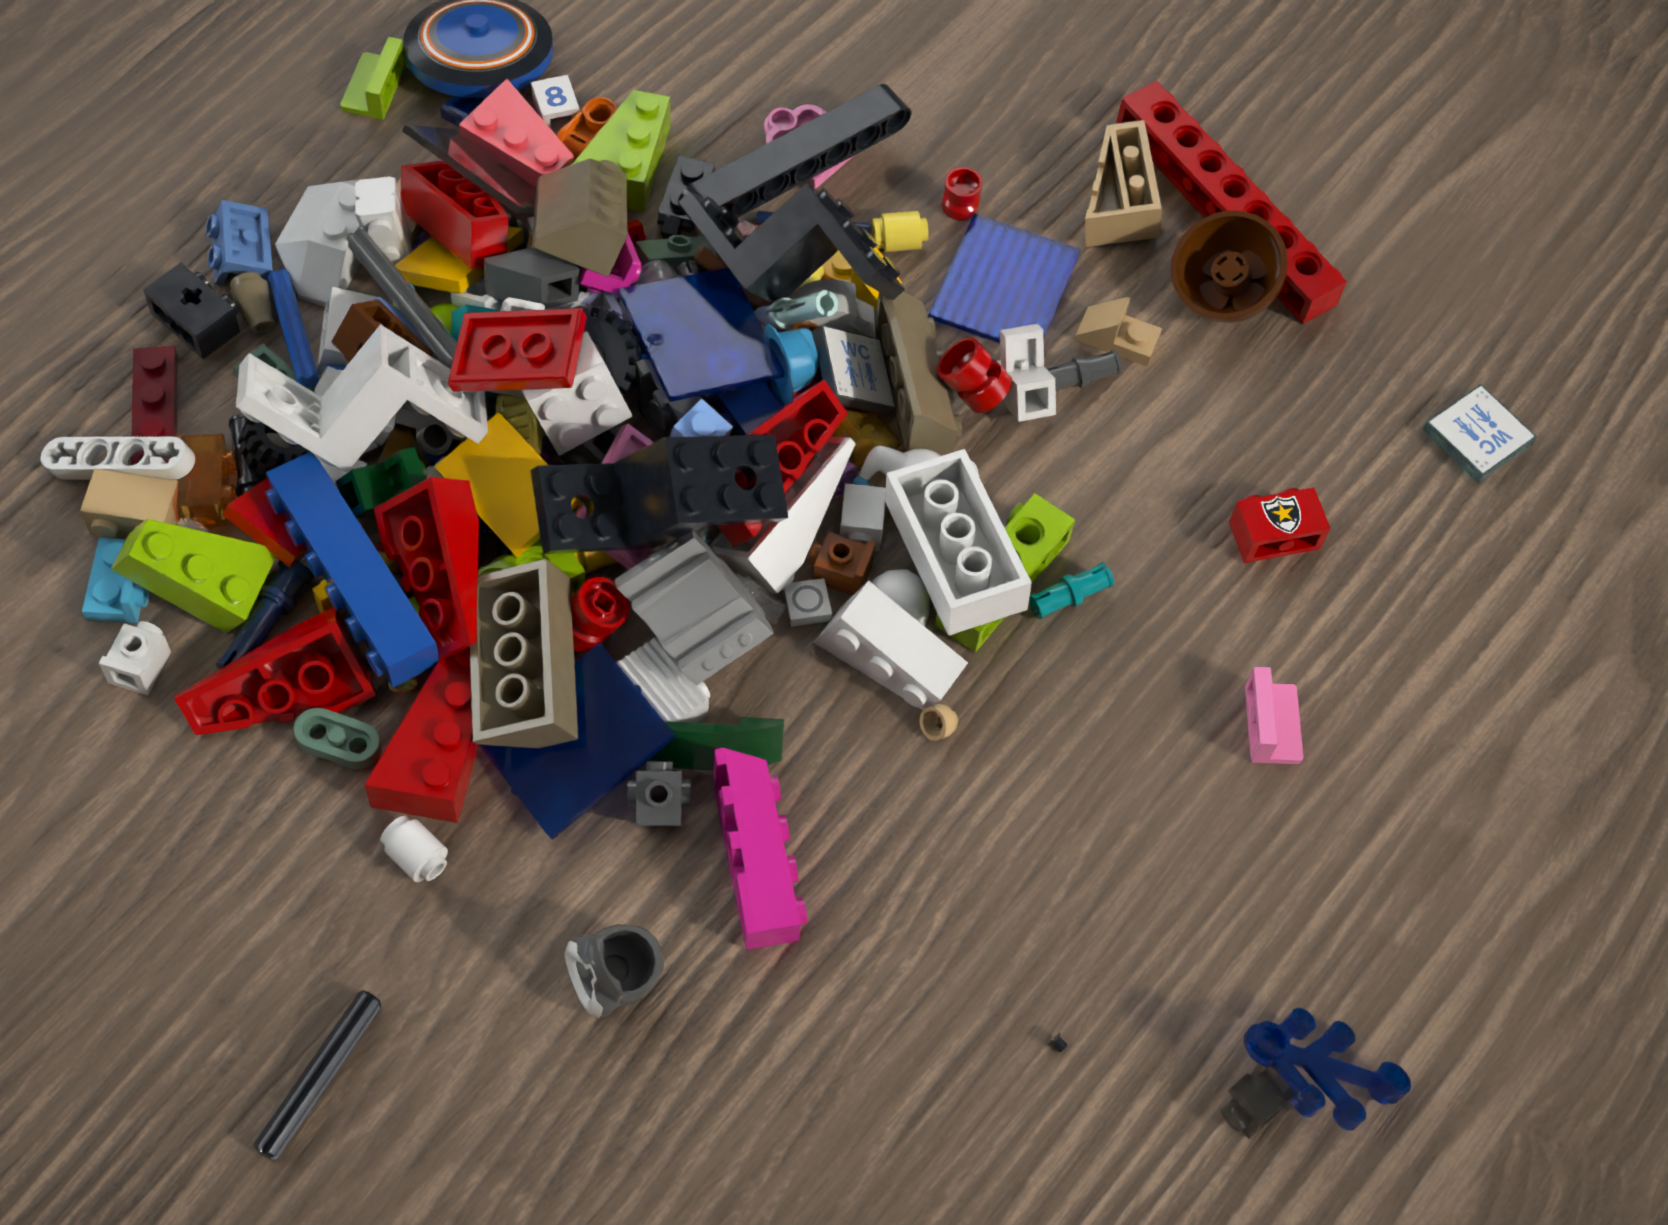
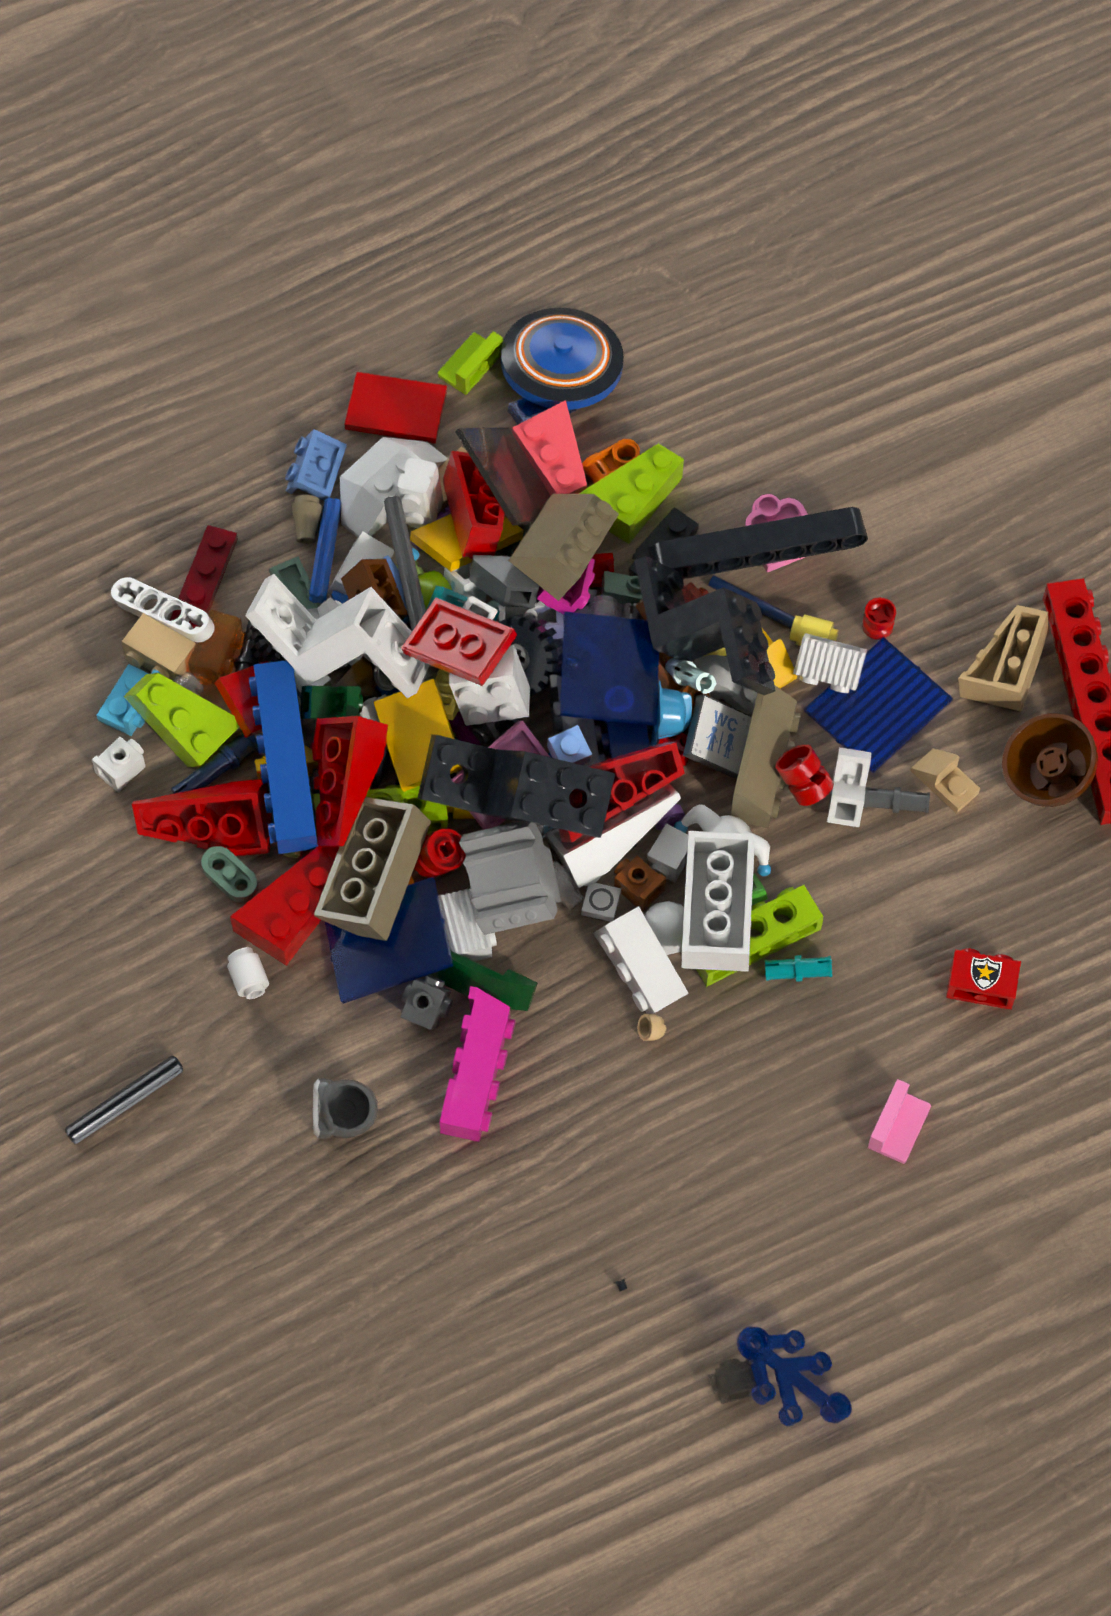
camera: 30 degrees right, 5 degrees up
(192, 310) = (261, 525): black brick -> none
(307, 154) = (396, 407): none -> red tile
(554, 101) = (596, 430): white brick -> none
(867, 433) = (703, 788): clear yellow slope -> none
(937, 251) = (829, 663): none -> white brick

